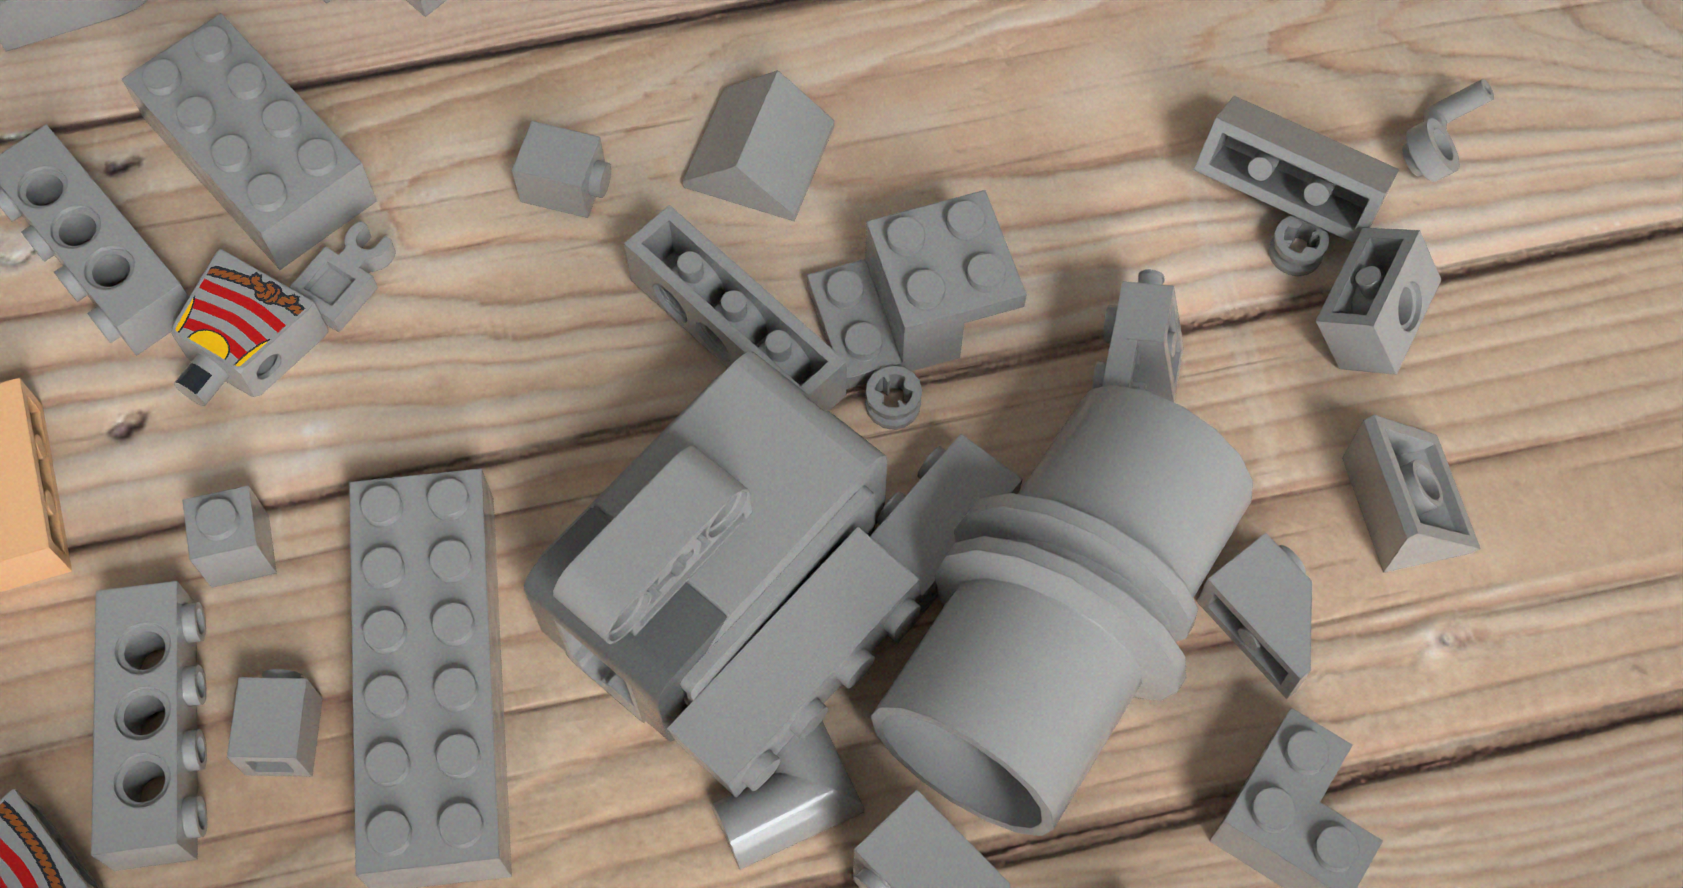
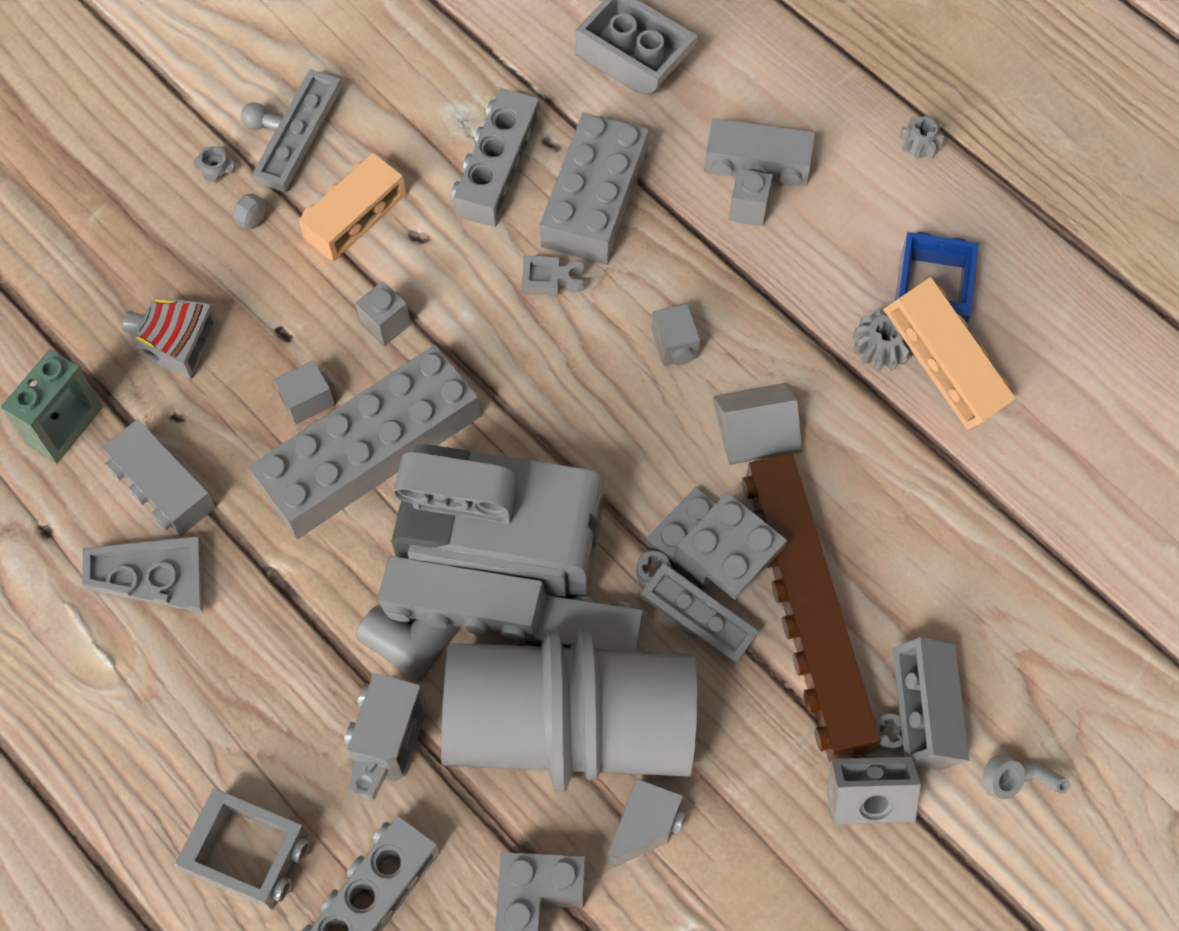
camera: 60 degrees right, 0 degrees up
(127, 629) = (280, 321): light grey brick -> none
(242, 330) = (491, 250): light grey torso -> none
(728, 307) = (639, 466): light grey brick -> none
(1000, 372) = (699, 613): none -> light grey plate
(1084, 231) = (812, 612): none -> reddish brown brick
(1143, 338) = (744, 675): light grey plate -> none
(1407, 495) = (767, 870): light grey slope -> none

